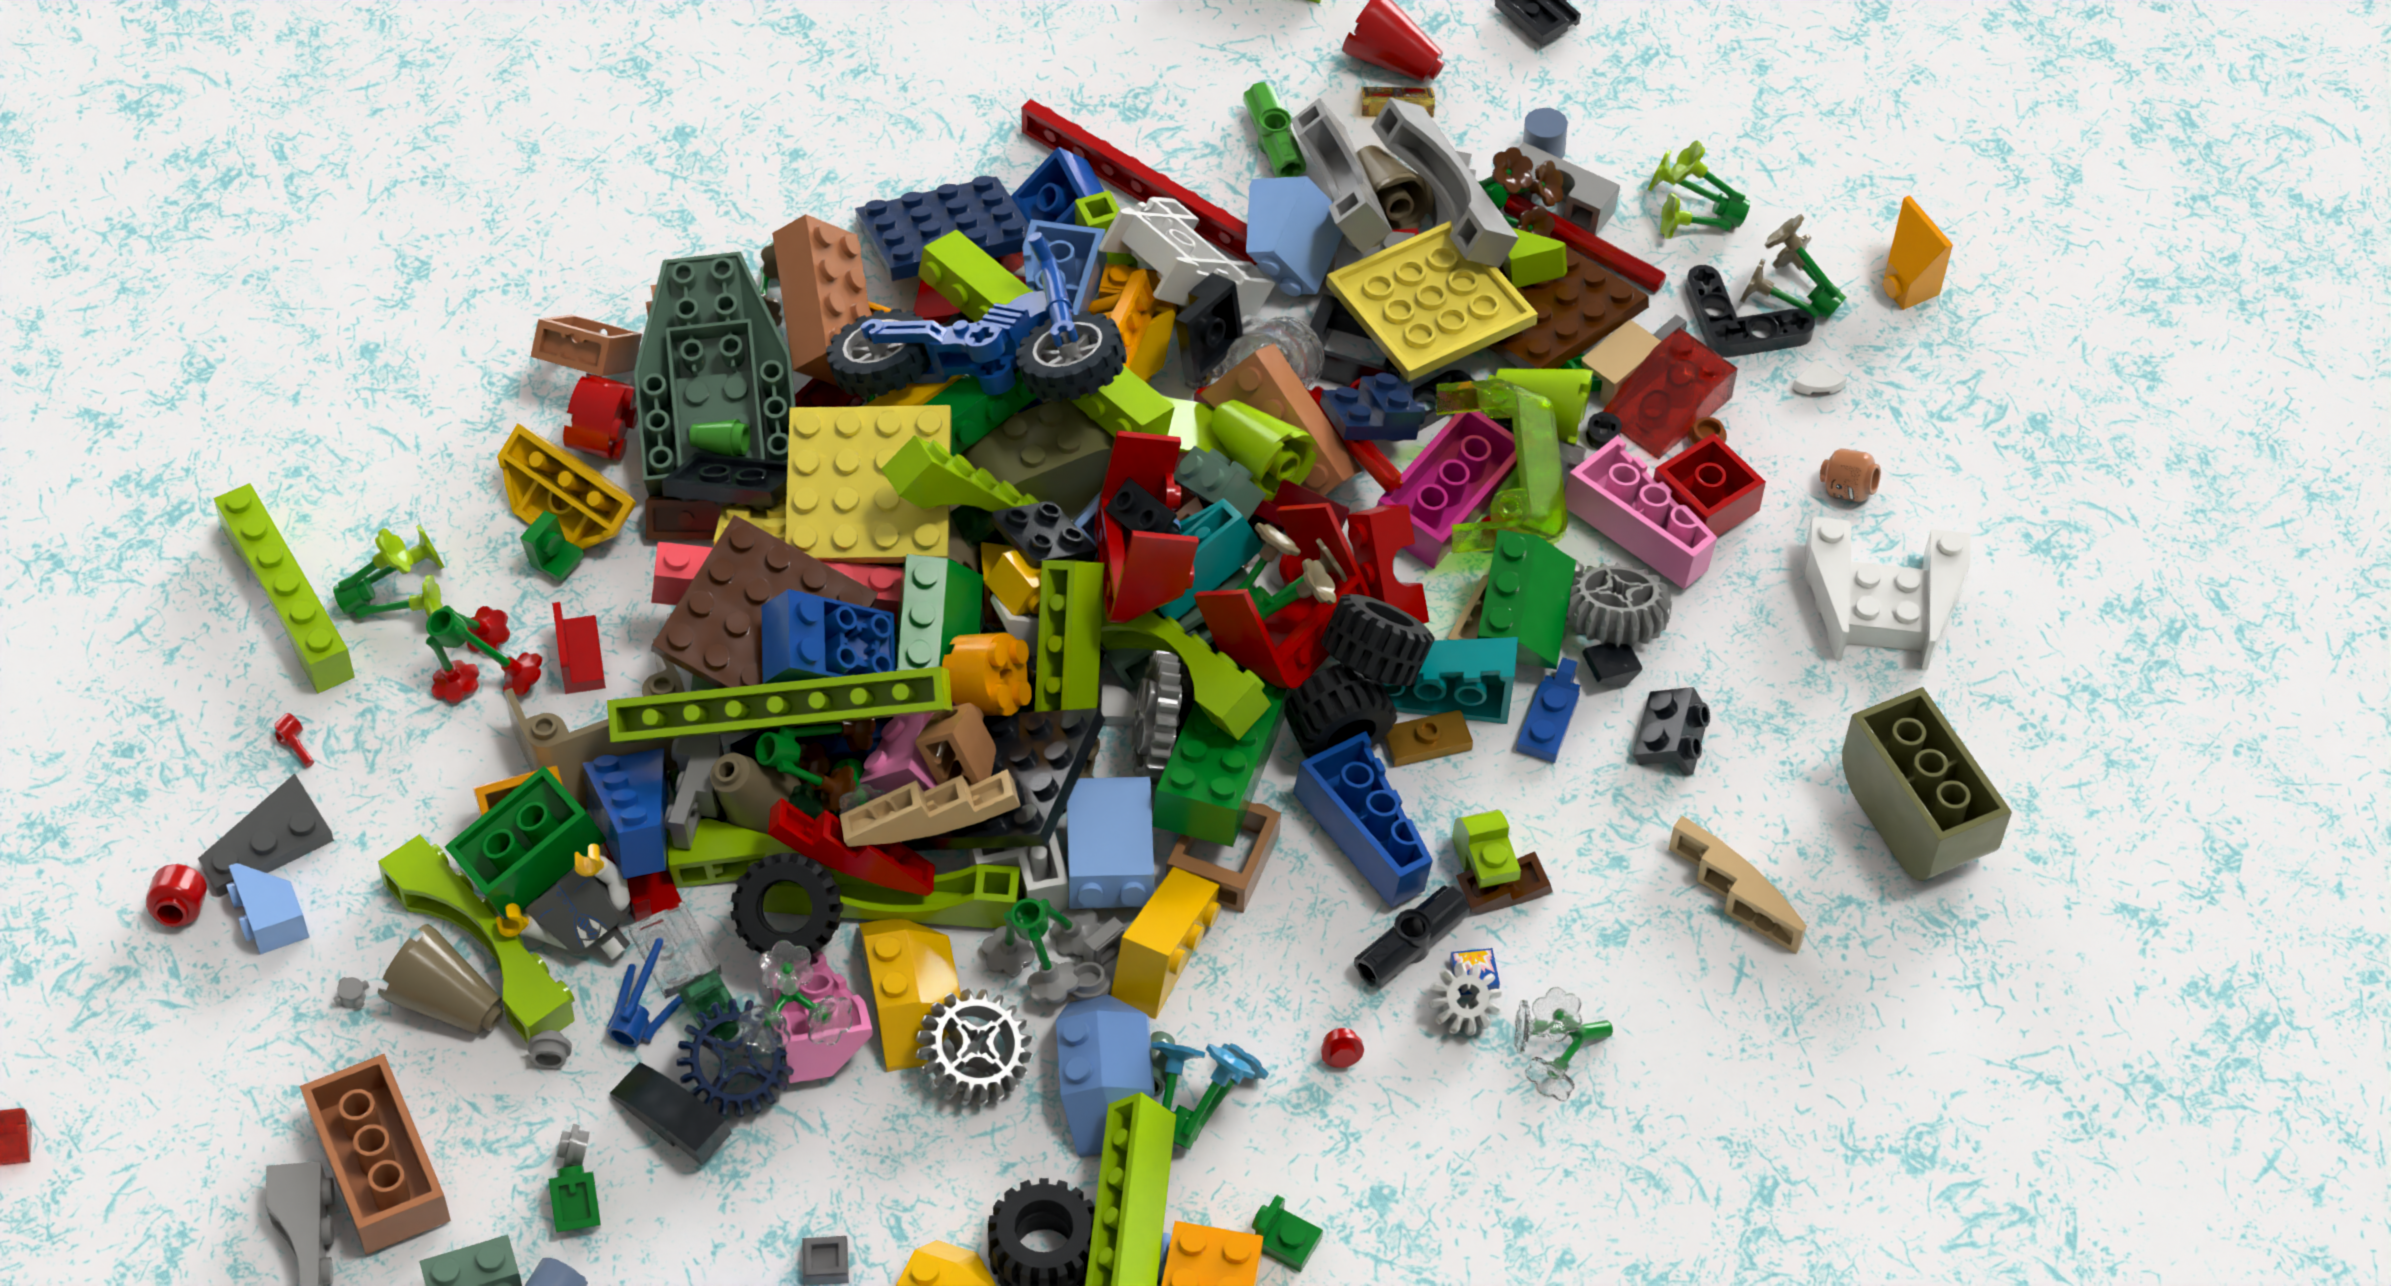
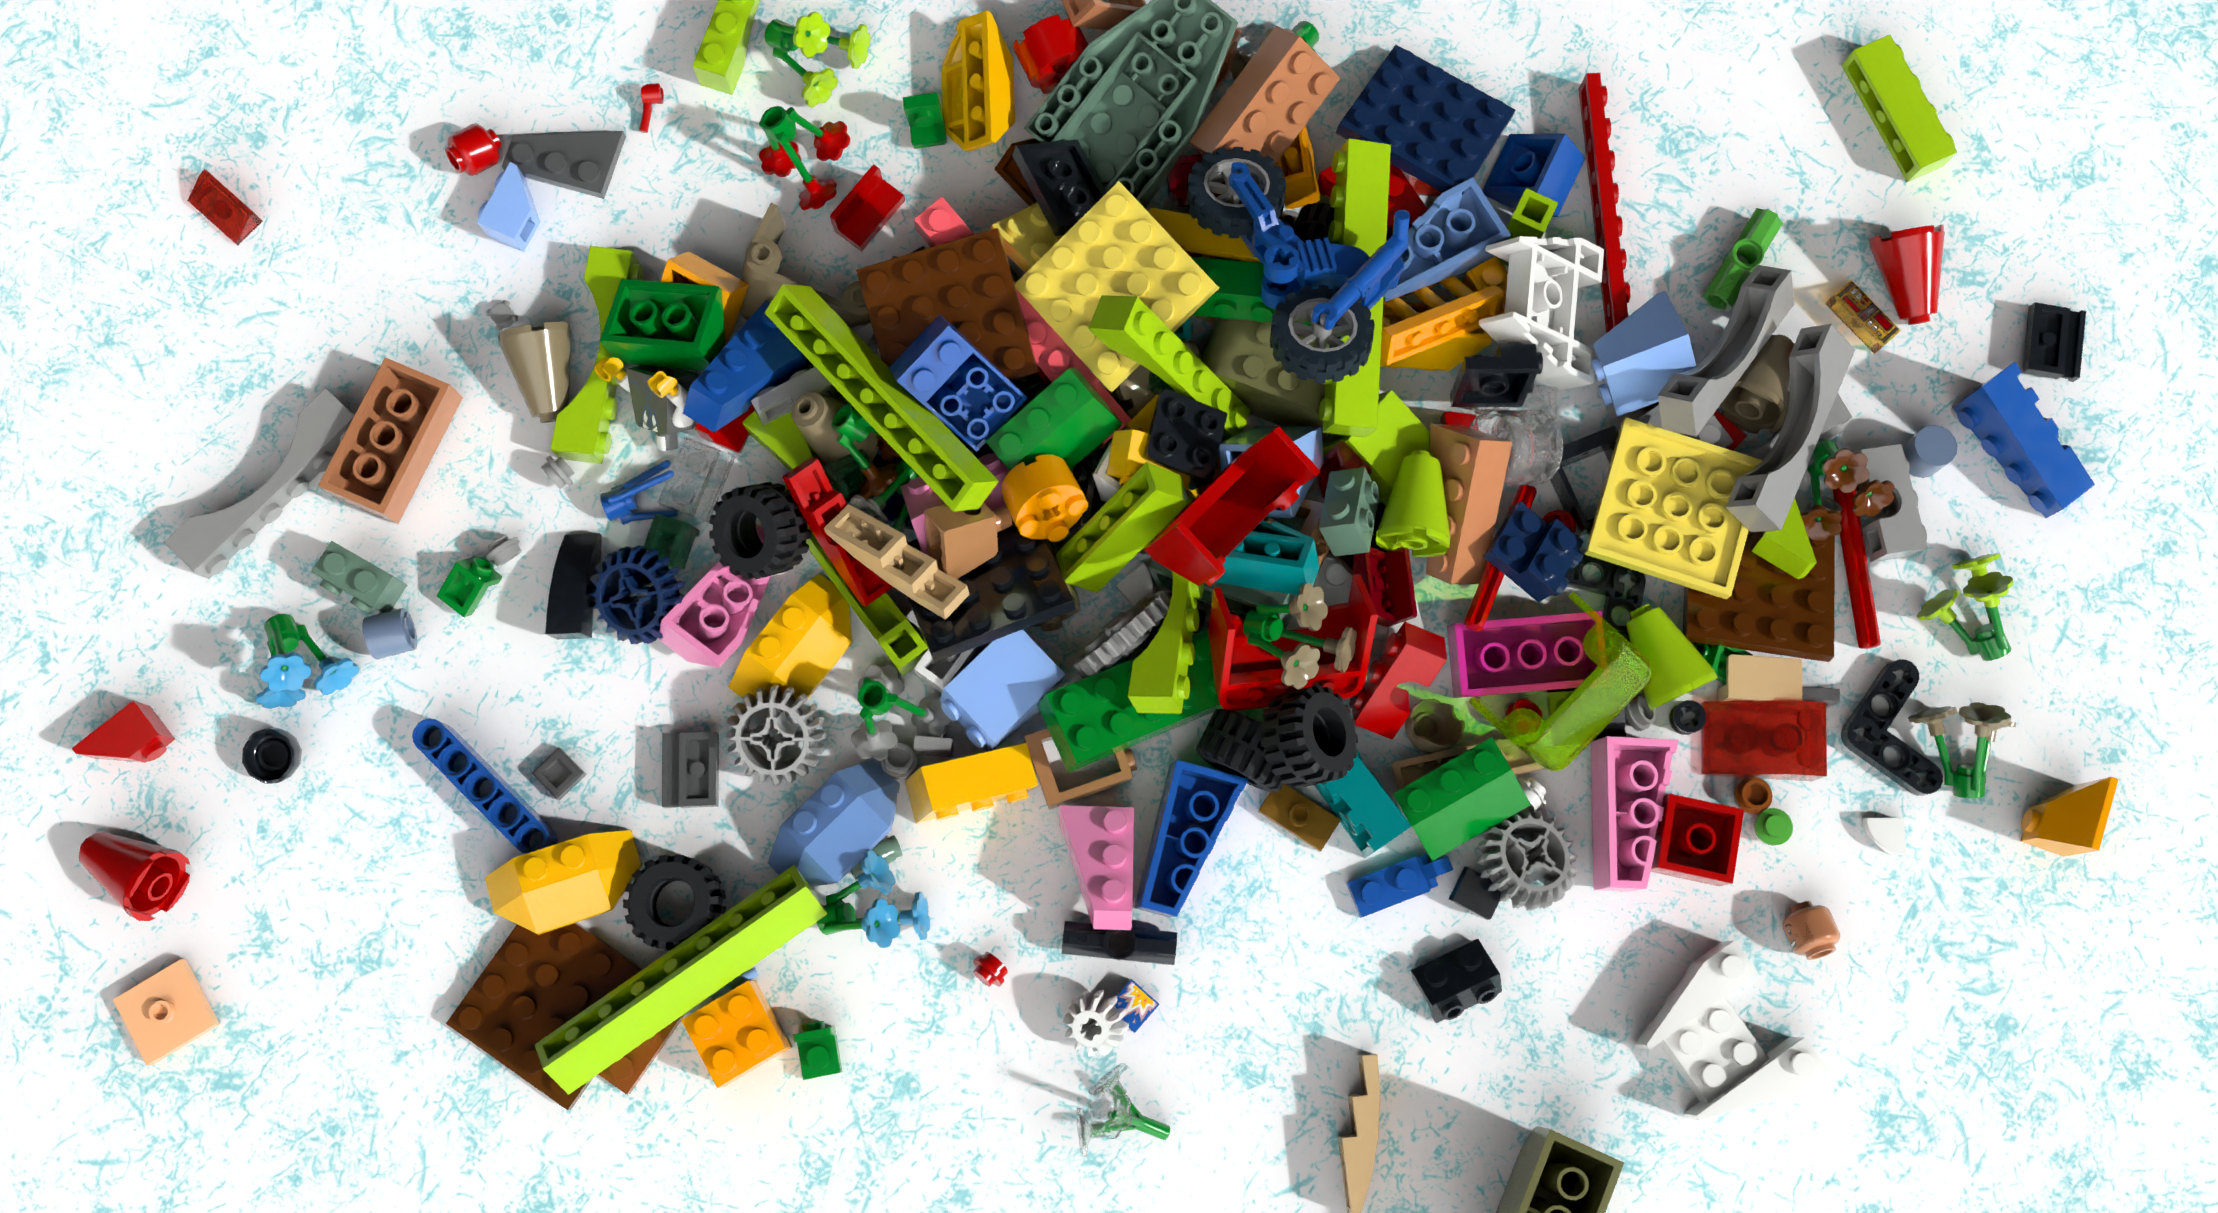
camera: 50 degrees right, 25 degrees up
(721, 437) = (1100, 146): bright green cone -> none
(787, 970) = (677, 589): clear plant -> none
(932, 1147) = (690, 769): none -> dark grey plate
(1141, 510) = (1245, 497): black hinge -> none
(1333, 883) = (1102, 854): none -> bright pink wedge
(1448, 590) = (1433, 726): none -> dark tan hair
(1486, 848) = (1230, 939): lime brick -> none
(1532, 885) = (1222, 967): reddish brown slope -> none
(1594, 76) = (2024, 442): none -> blue wedge
(1745, 441) = (1773, 826): none -> bright green plate

